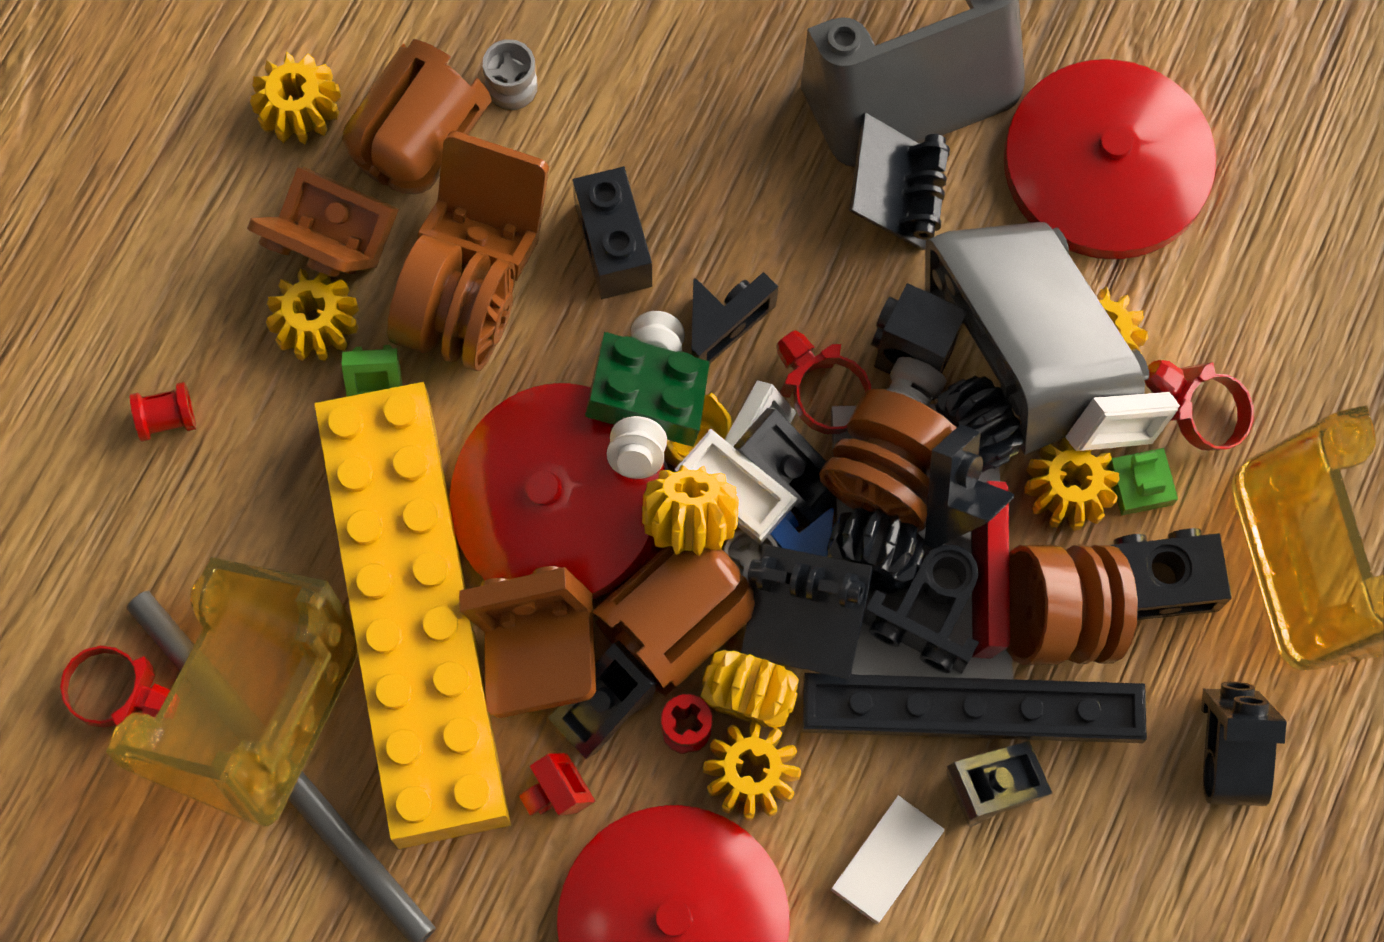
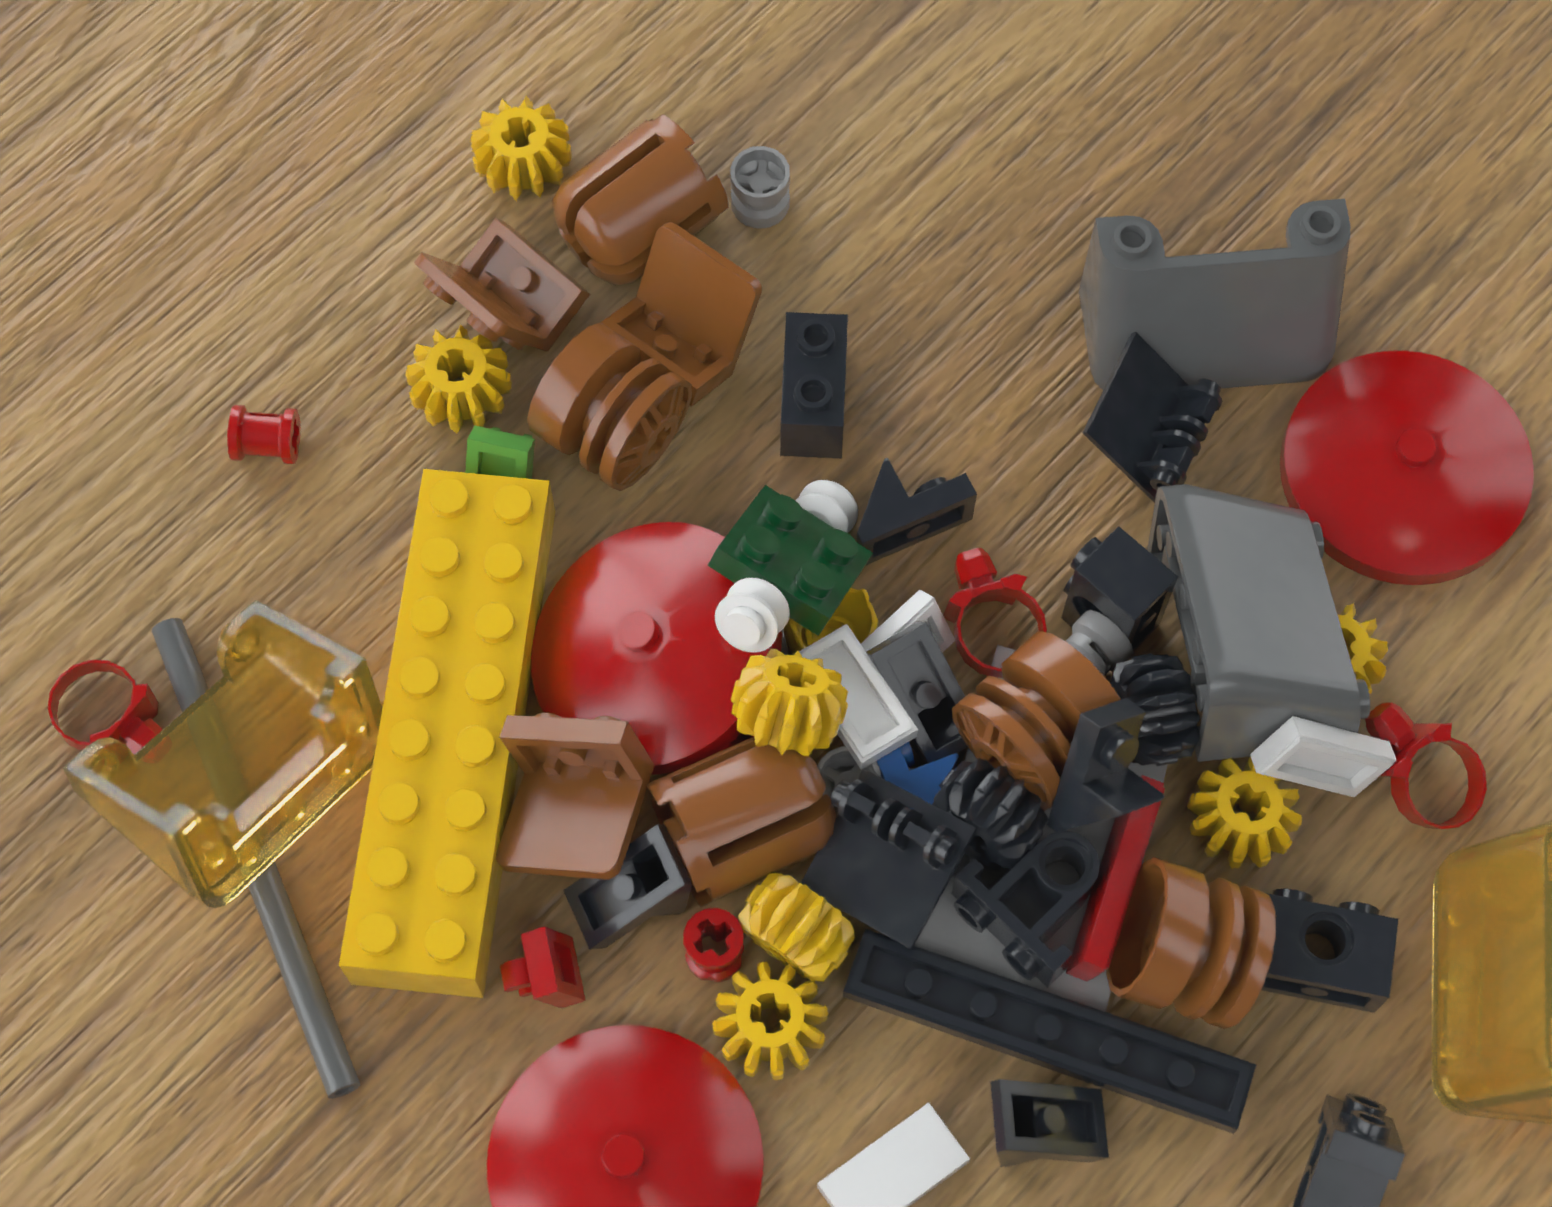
camera: 20 degrees right, 5 degrees down
(1143, 481) = (1330, 837): bright green tile -> none

